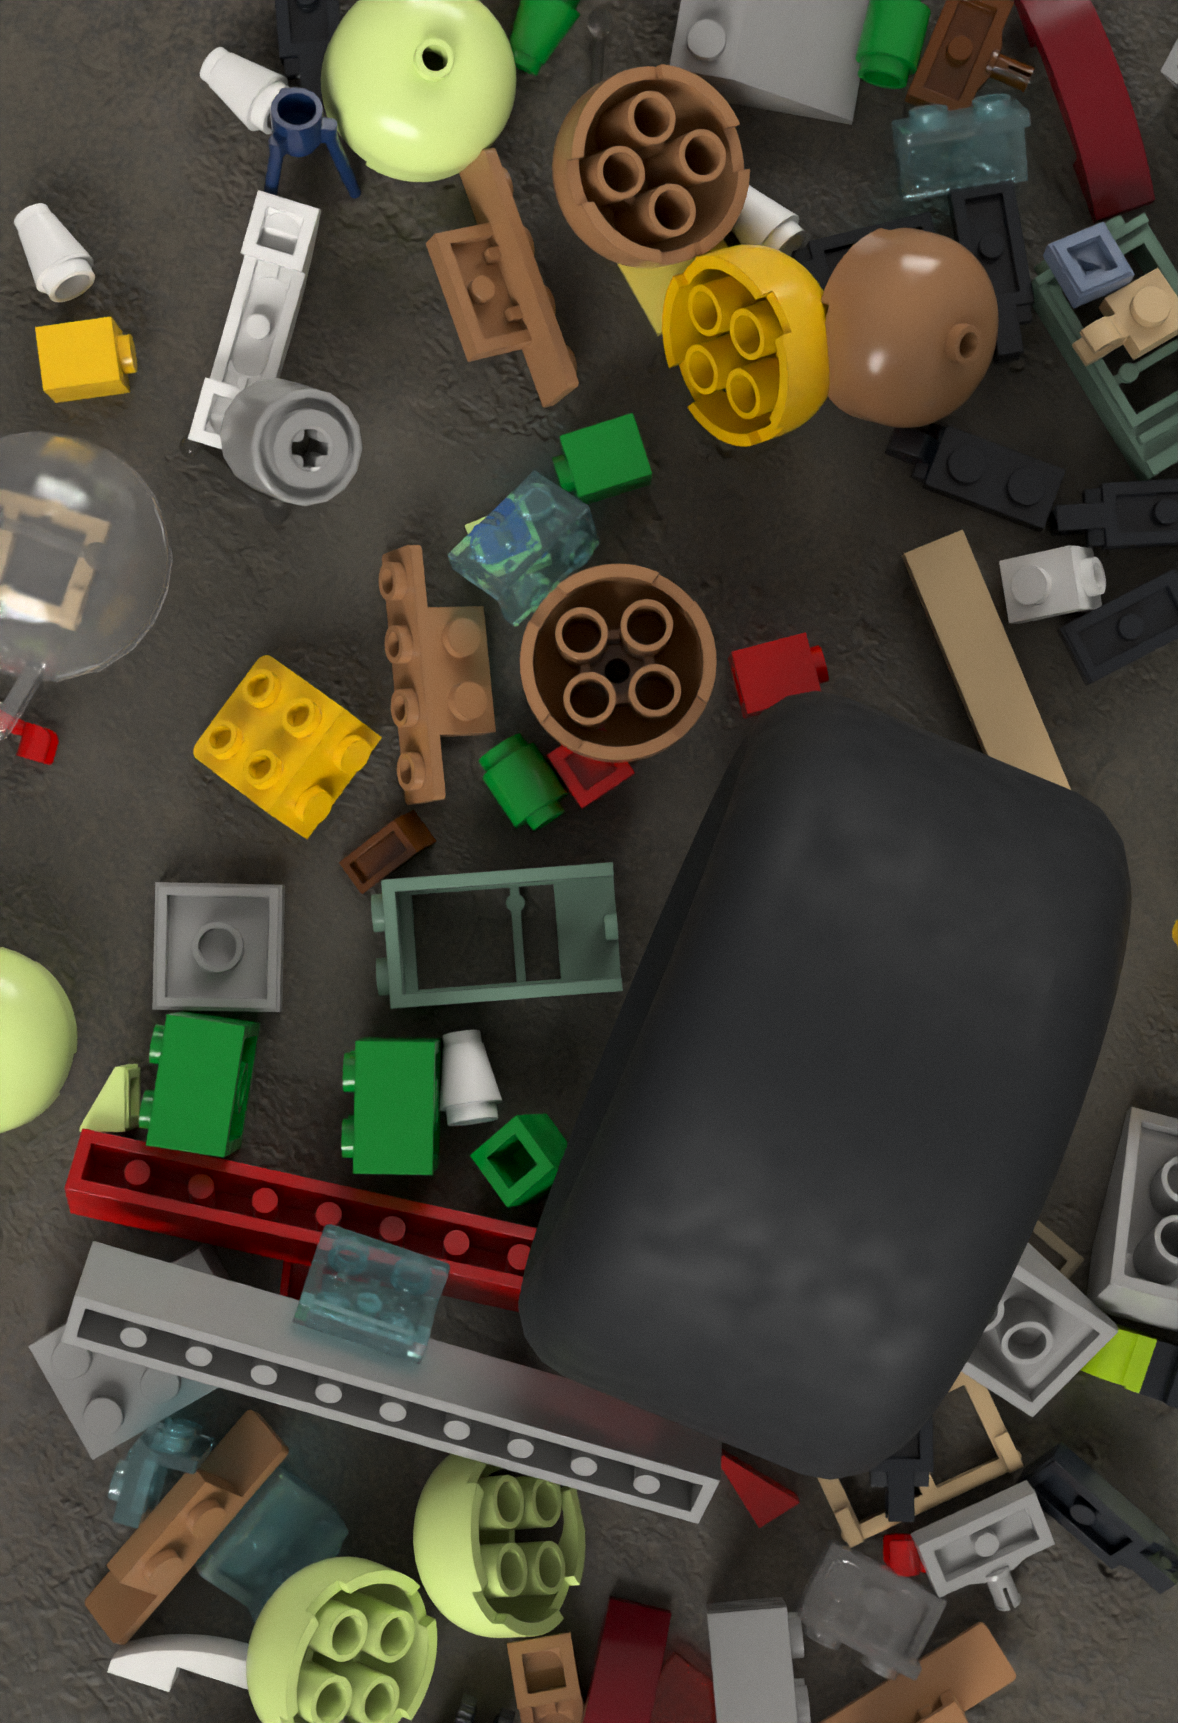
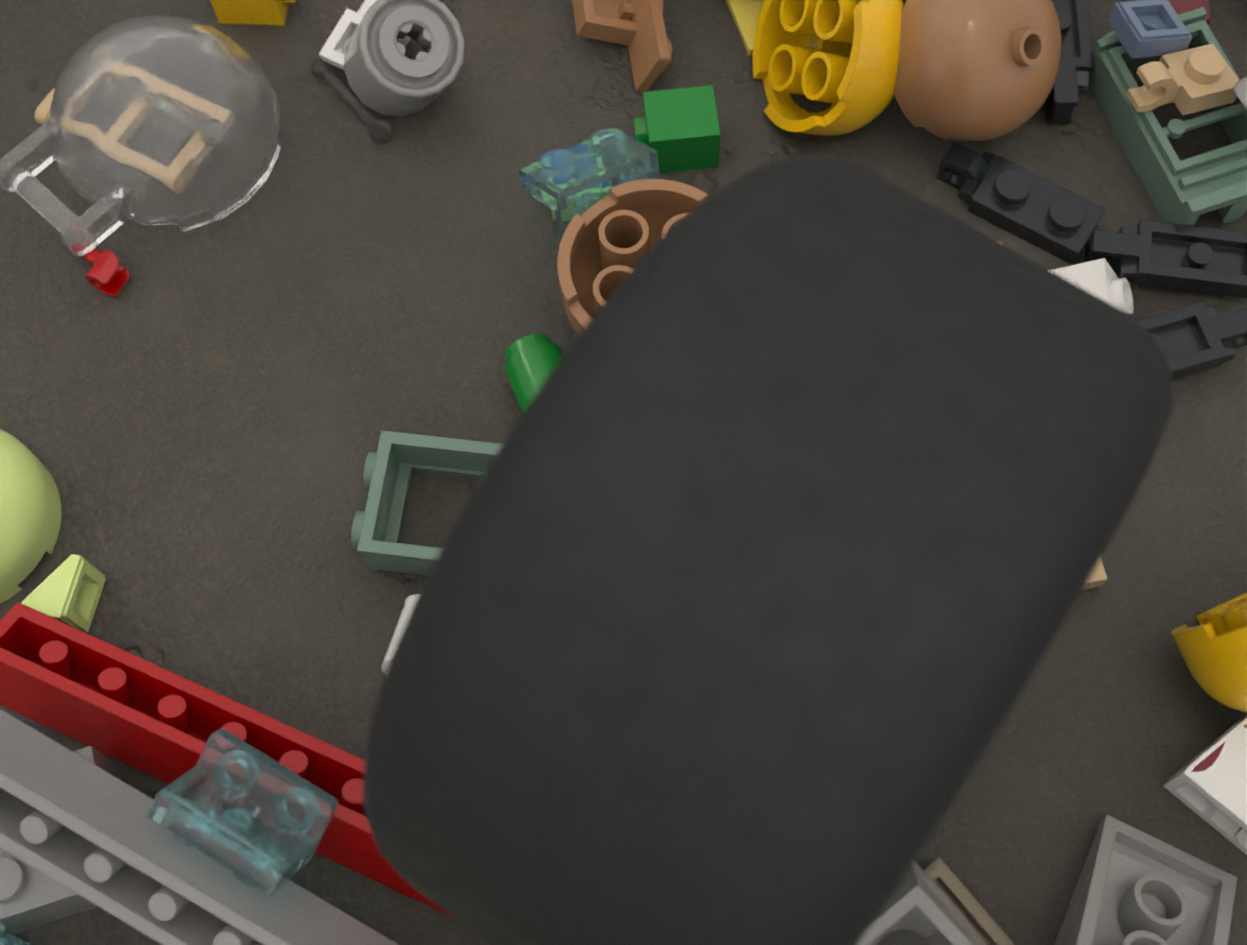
camera: 15 degrees right, 20 degrees down
(200, 1083) = (150, 581): green brick -> none
(218, 947) = (215, 480): light grey tile -> none
(285, 745) = (334, 314): yellow bracket -> none
(387, 851) = (406, 413): reddish brown piece -> none
(394, 1105) = (332, 641): green brick -> none
(437, 673) = (487, 276): medium nougat bracket -> none

